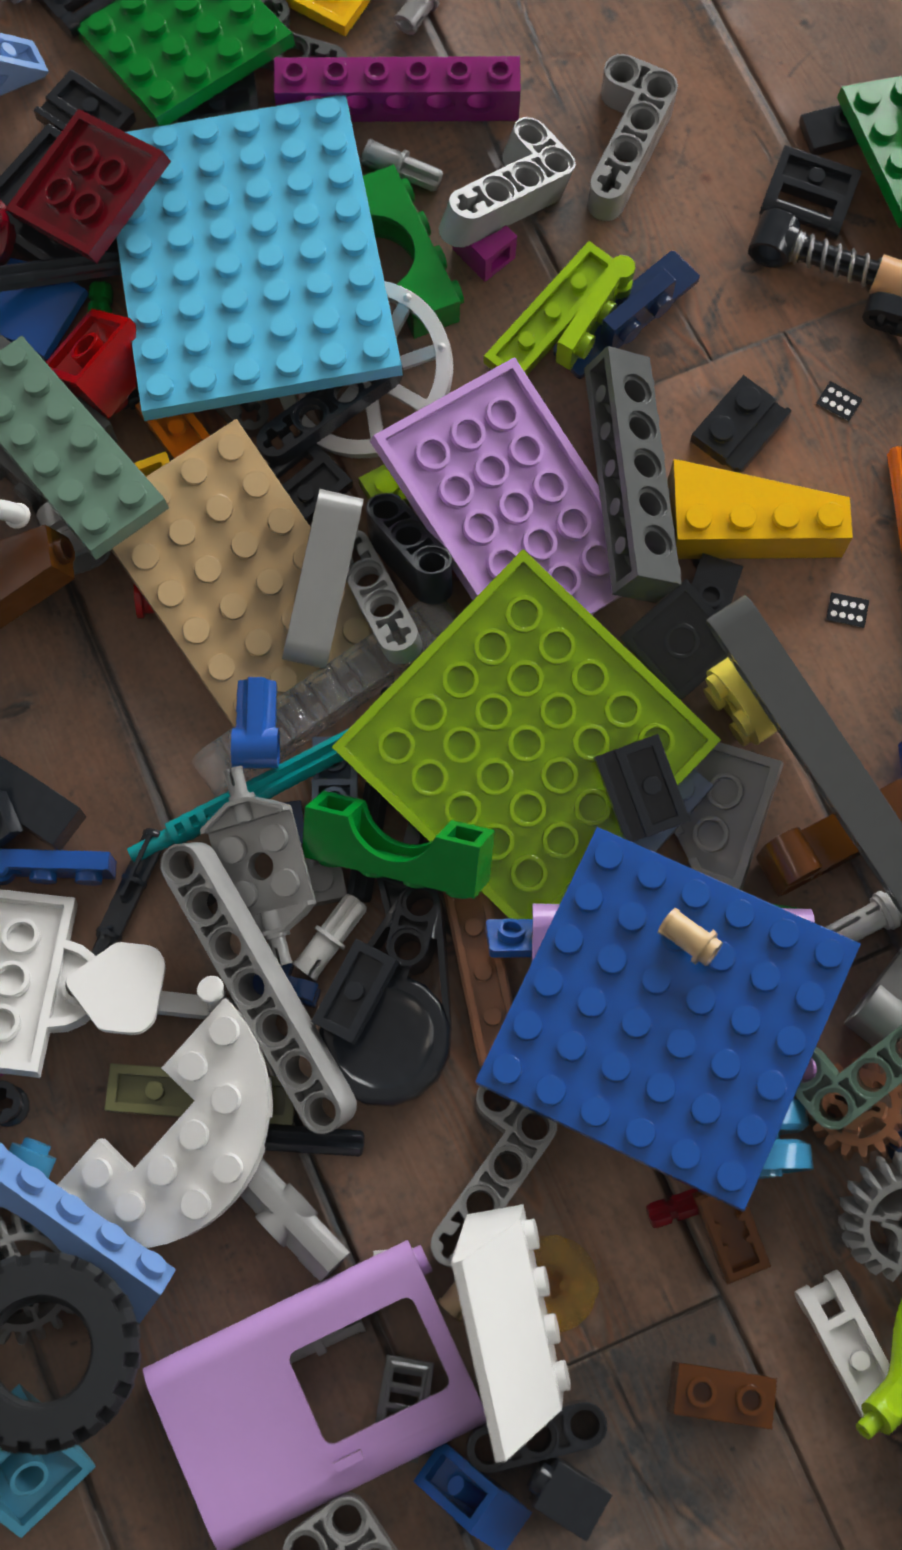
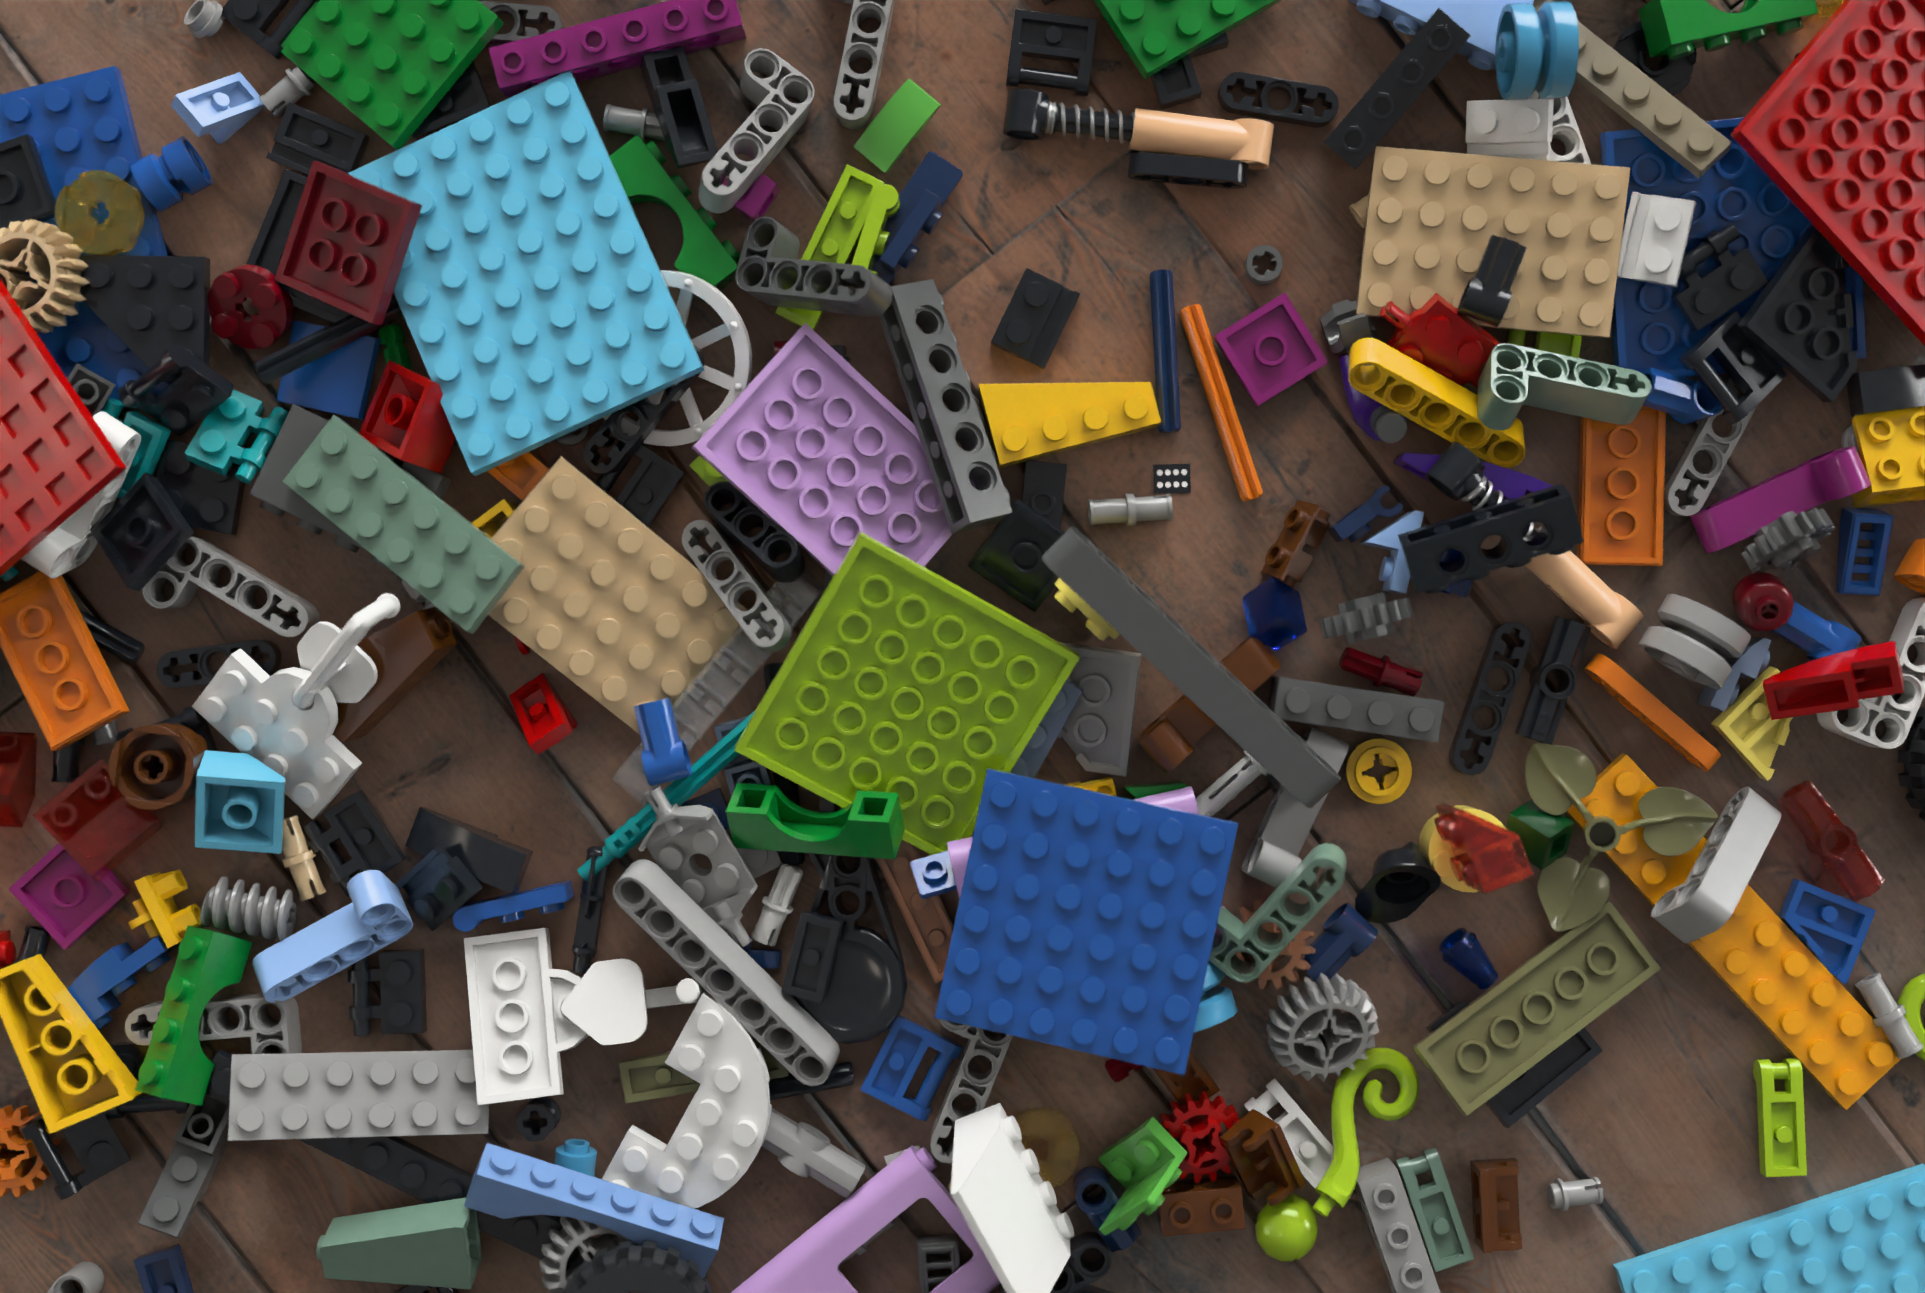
camera: 10 degrees left, 15 degrees up
(79, 60) = (287, 90): none -> light grey pin
(140, 682) = (542, 714): none -> red slope
(322, 578) = (683, 586): light grey beam -> none
(418, 1141) = (898, 1062): none -> blue plate
(439, 147) = (678, 106): none -> black slope
(505, 320) = (776, 277): none -> dark grey beam
(612, 1376) = (1100, 1206): none -> dark blue piece
(641, 788) = (1019, 722): black plate -> none
(644, 220) = (897, 125): none -> bright green slope
(665, 1327) = (1145, 1165): none -> bright green bracket
(690, 937) = (1089, 858): tan pin -> none
(728, 1329) = (1195, 1121): none -> red gear
(803, 626) = (1129, 509): none -> light grey pin
(808, 1352) = (1262, 1157): none -> reddish brown hinge
(816, 1452) = (1287, 1229): none -> lime hair
(839, 401) = (1123, 267): black sticker -> none
(866, 484) = (1165, 350): none -> dark blue axle

